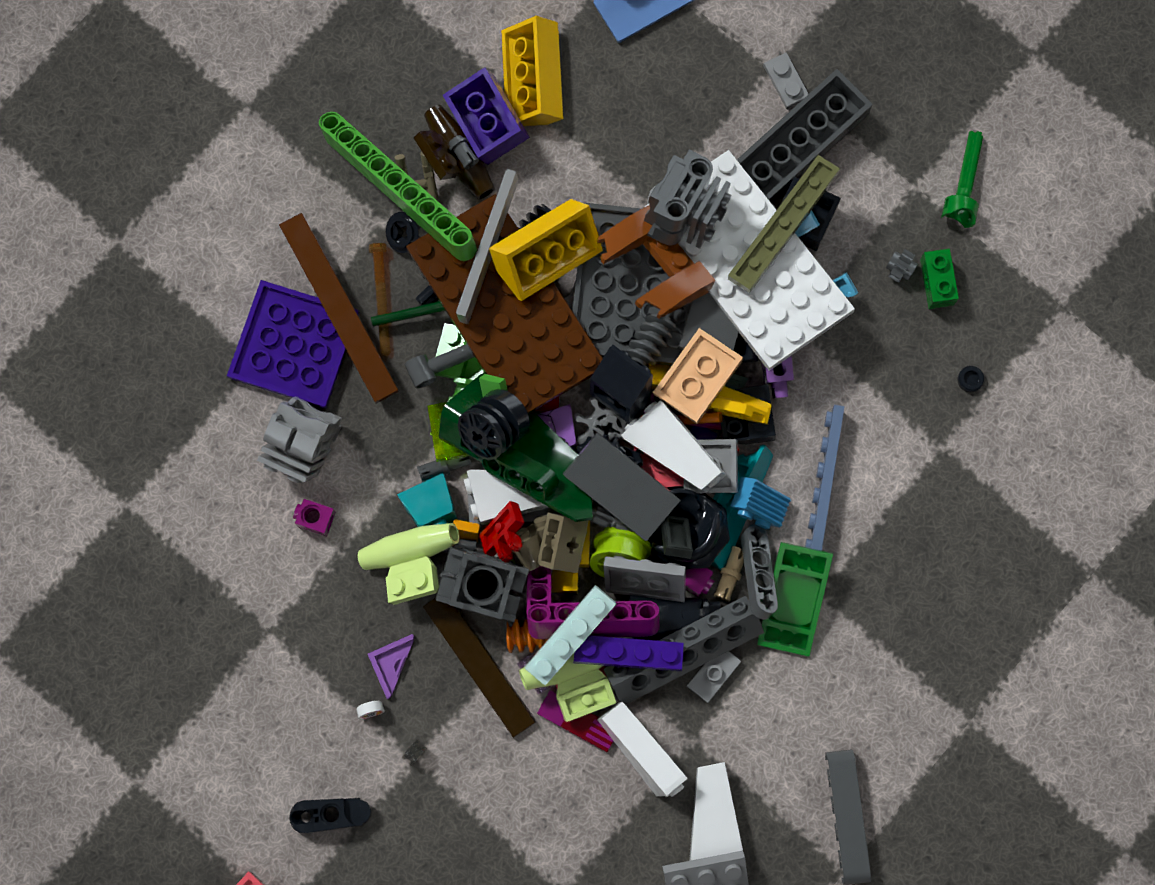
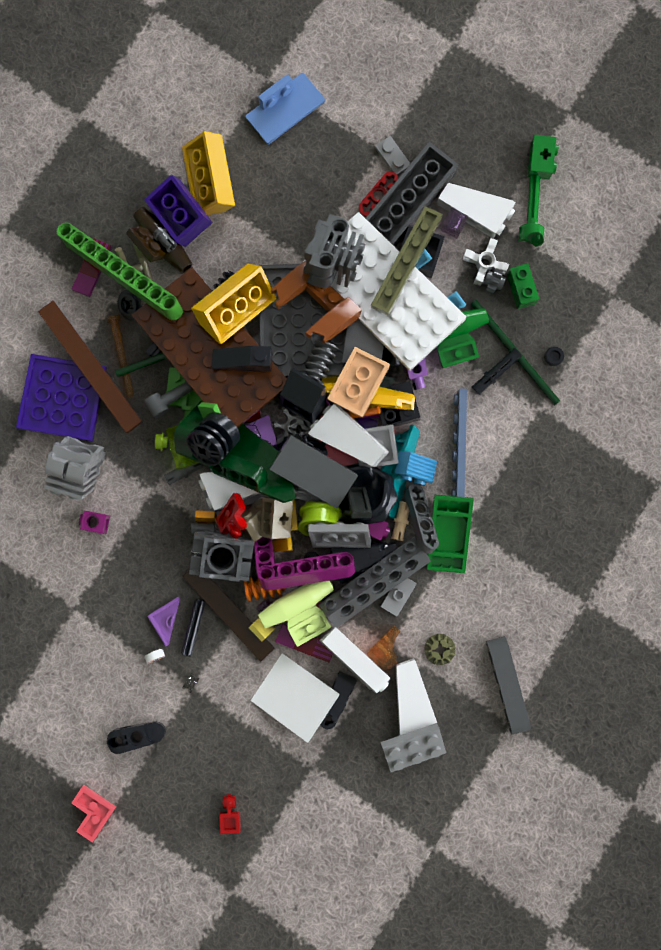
camera: 10 degrees left, 5 degrees up
(351, 186) = (88, 275): none -> magenta tile
(408, 557) = (165, 541): yellowish green plate -> none
(419, 421) = (161, 441): none -> lime plate
(427, 679) = (193, 627): none -> black axle
(429, 502) = (178, 503): teal torso -> none
(489, 239) = (191, 299): light grey tile -> none
(519, 694) = (259, 630): none -> light yellow tile
(548, 324) = (243, 358): none -> black slope
(553, 792) = (295, 697): none -> white sticker
(570, 635) = (291, 586): light aqua plate -> none
(611, 802) = (344, 686): none -> black piece
(630, 653) = (335, 592): dark purple plate -> none
(683, 745) = (383, 650): none -> clear orange arch
(751, 764) = (432, 644): none -> olive gear
(768, 112) = (365, 202): none -> red beam
(841, 345) = (460, 345): none -> green plate
(857, 181) = (454, 223): none -> clear purple brick
(875, 230) = (475, 258): none -> white pin
(891, 166) = (484, 210): none -> white slope
(914, 370) = (480, 386): none -> black pin
(918, 367) = (523, 362): none -> dark green piece
(990, 94) = (540, 147): none -> green brick

